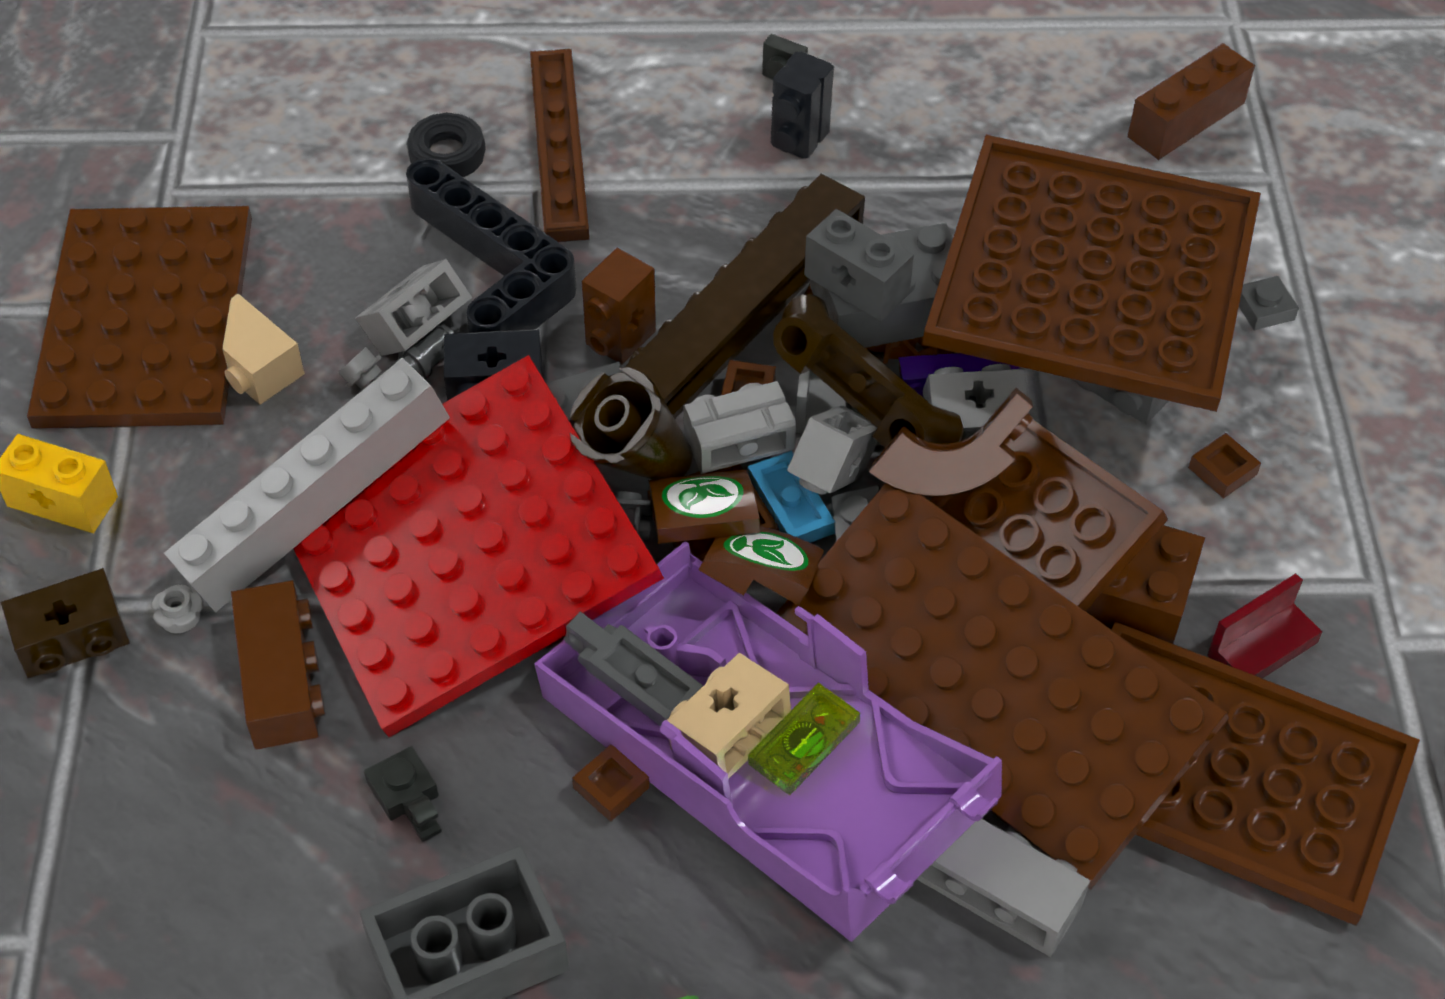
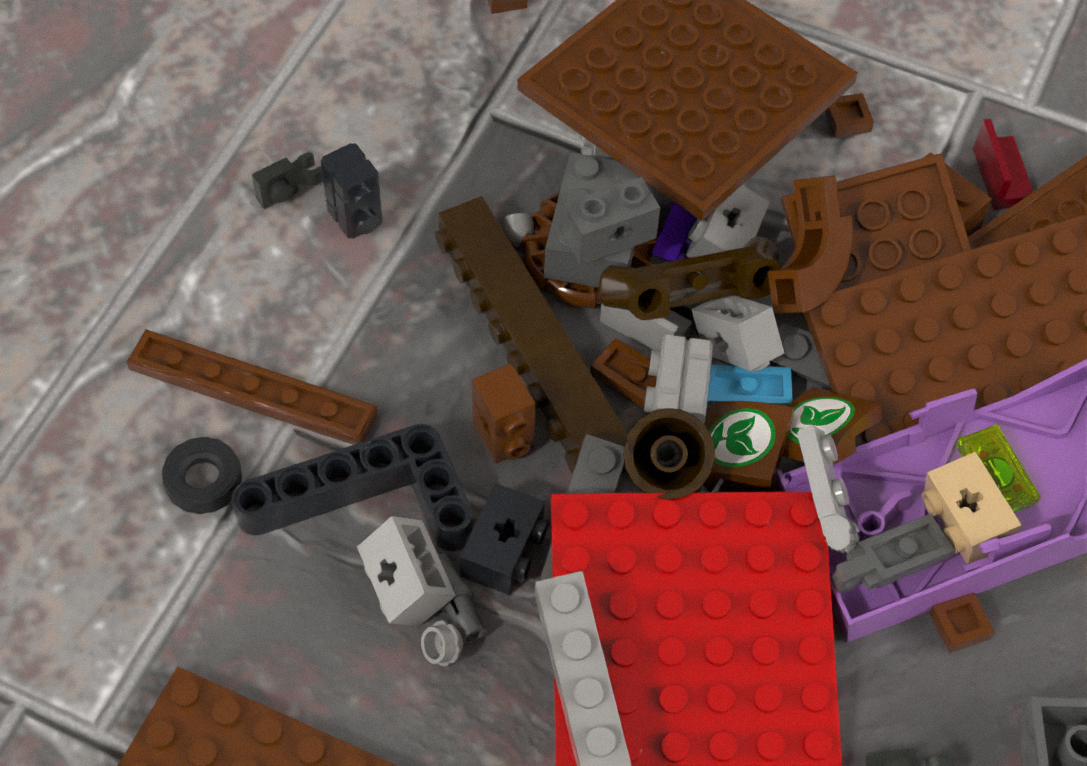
camera: 65 degrees left, 5 degrees up
(258, 353) = (374, 721): tan slope -> none
(660, 566) = (827, 490): none -> light grey hinge

